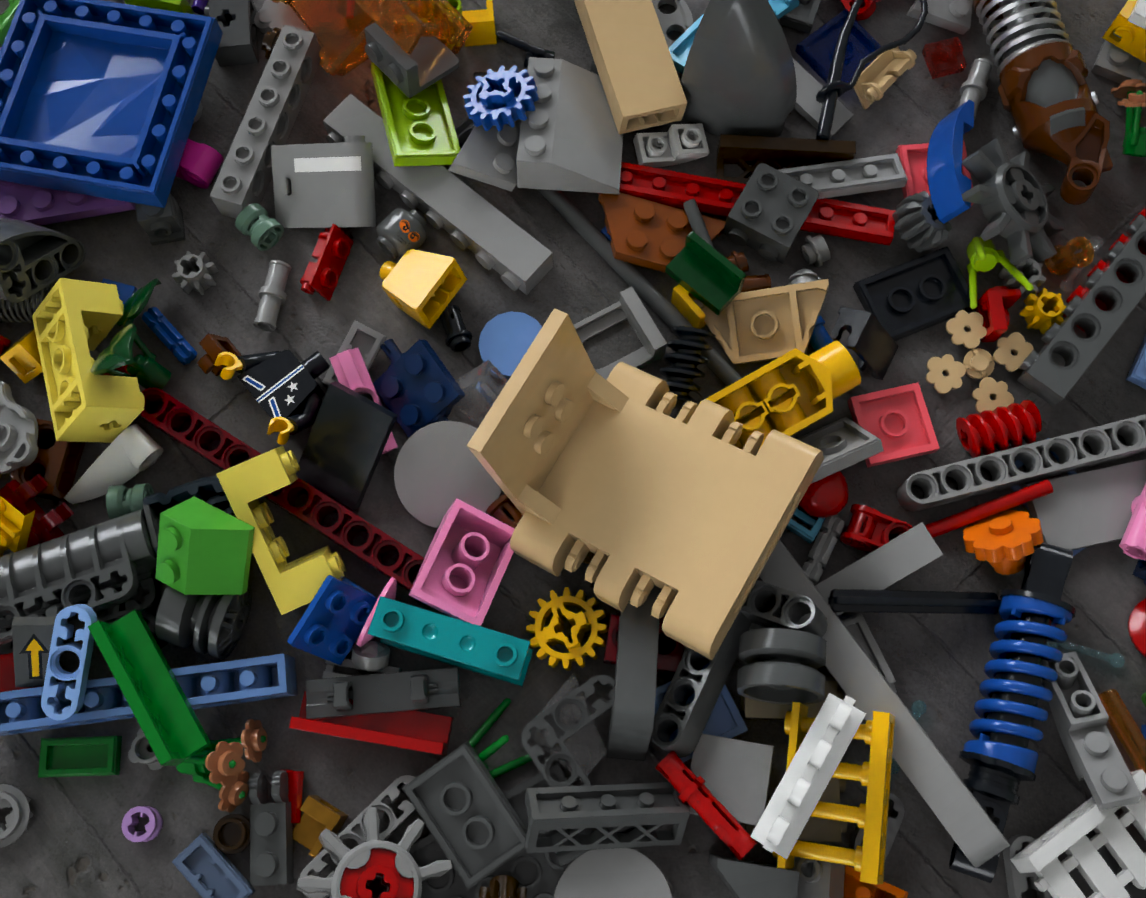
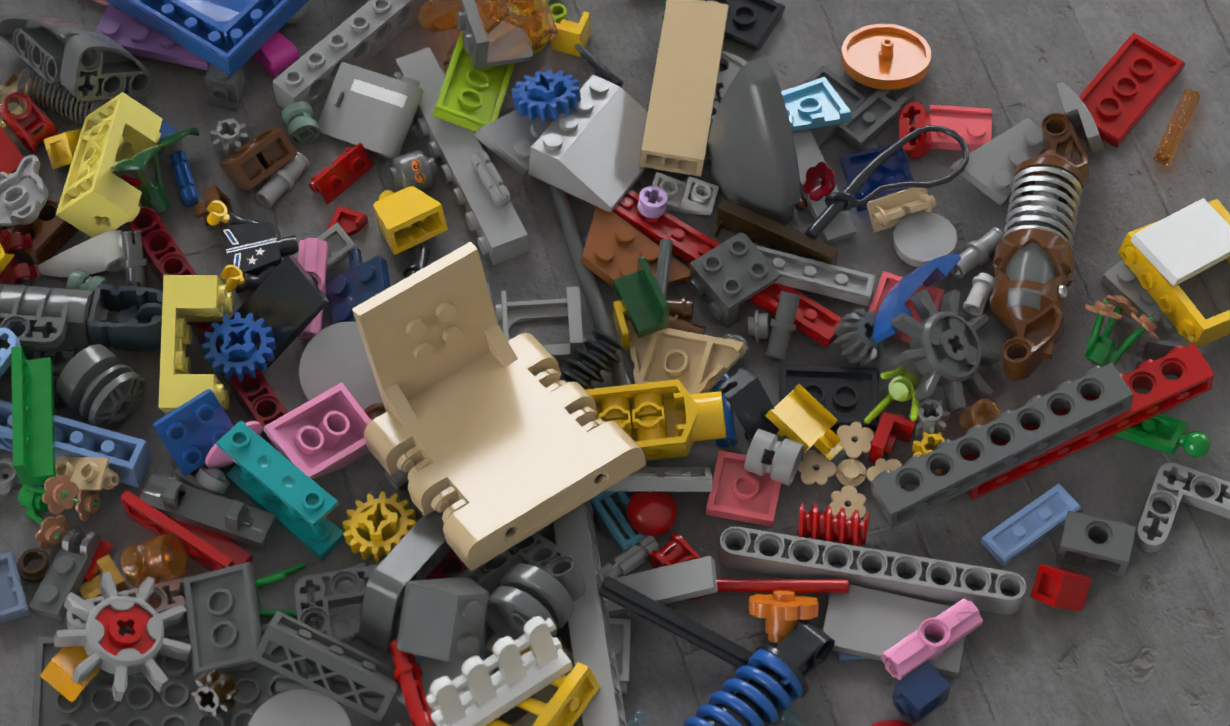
camera: 25 degrees right, 15 degrees down
(166, 452) = (133, 258): none -> dark grey pin
(203, 550) = (125, 331): bright green slope -> none
(236, 718) = (87, 472): none -> tan hinge
(237, 284) = (258, 159): none -> reddish brown brick
(331, 489) = (239, 346): none -> blue gear
(359, 309) = (349, 220): none -> red tile
(360, 778) = (157, 558): none -> clear orange wheel
(487, 209) = (490, 178): none -> light grey axle
(661, 162) = (652, 194): none -> lavender bush
(708, 721) = (443, 618): none -> dark grey slope
(806, 70) = (819, 181): none -> dark red plant
(843, 241) = (783, 325): none -> dark grey pin
(916, 333) = (806, 422): none -> yellow piece
(919, 98) = (923, 238): none -> light grey tile
(922, 385) = (785, 461): none -> light grey wheel
(944, 57) = (969, 216): clear red tile -> none
(997, 125) = (979, 294): none -> white pin

